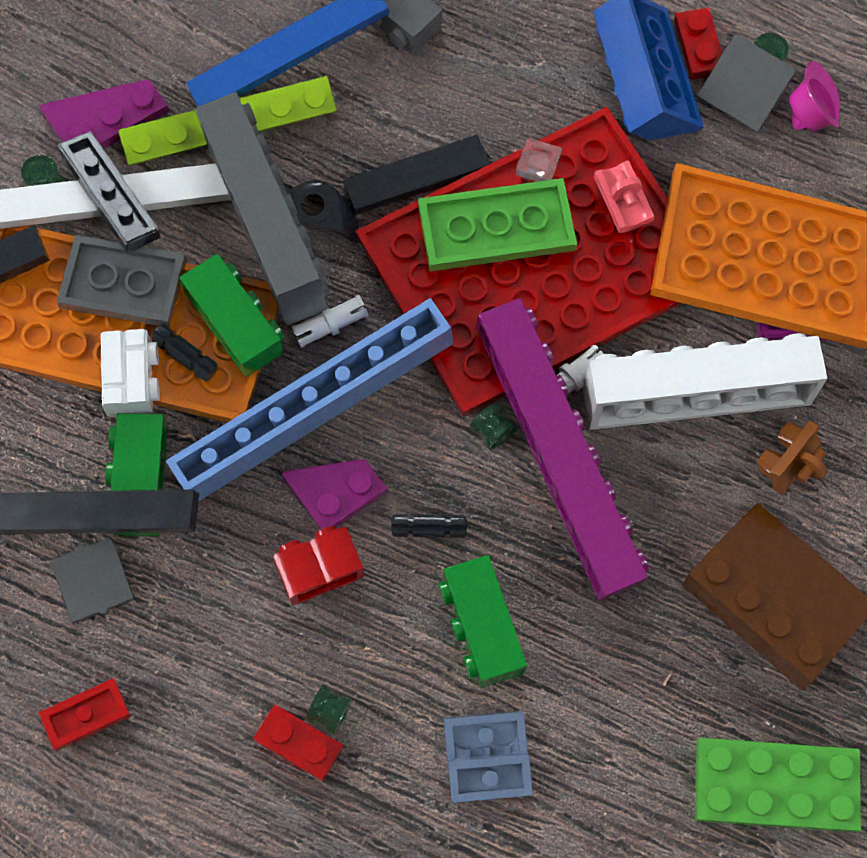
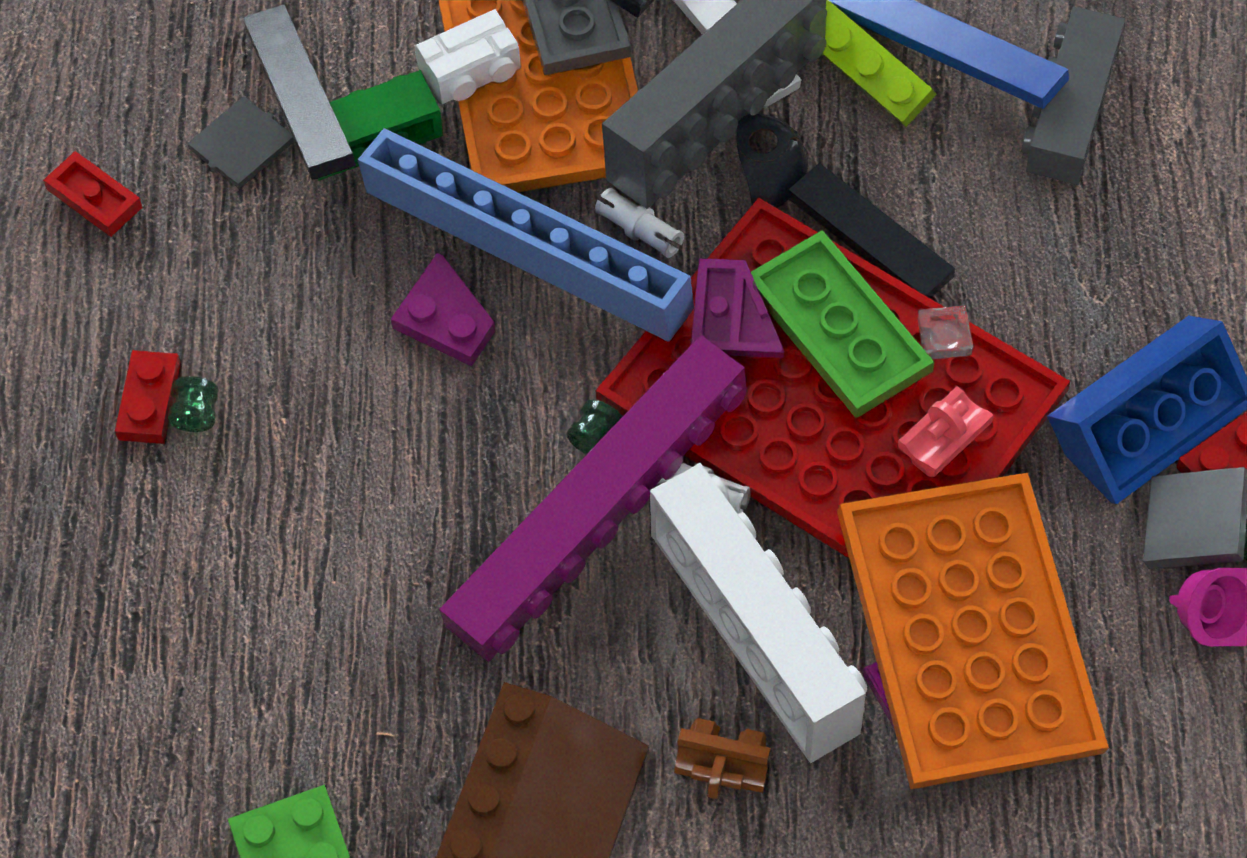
camera: 70 degrees right, 10 degrees down
(184, 352) = (521, 100): black axle -> none
(233, 314) = (570, 134): green brick -> none
(318, 565) = (348, 327): red brick -> none
(428, 525) = (448, 417): black axle -> none
(457, 288) = (732, 311): none -> magenta wing
(482, 622) = (358, 510): green brick -> none
(487, 756) = (210, 580): sand blue slope -> none

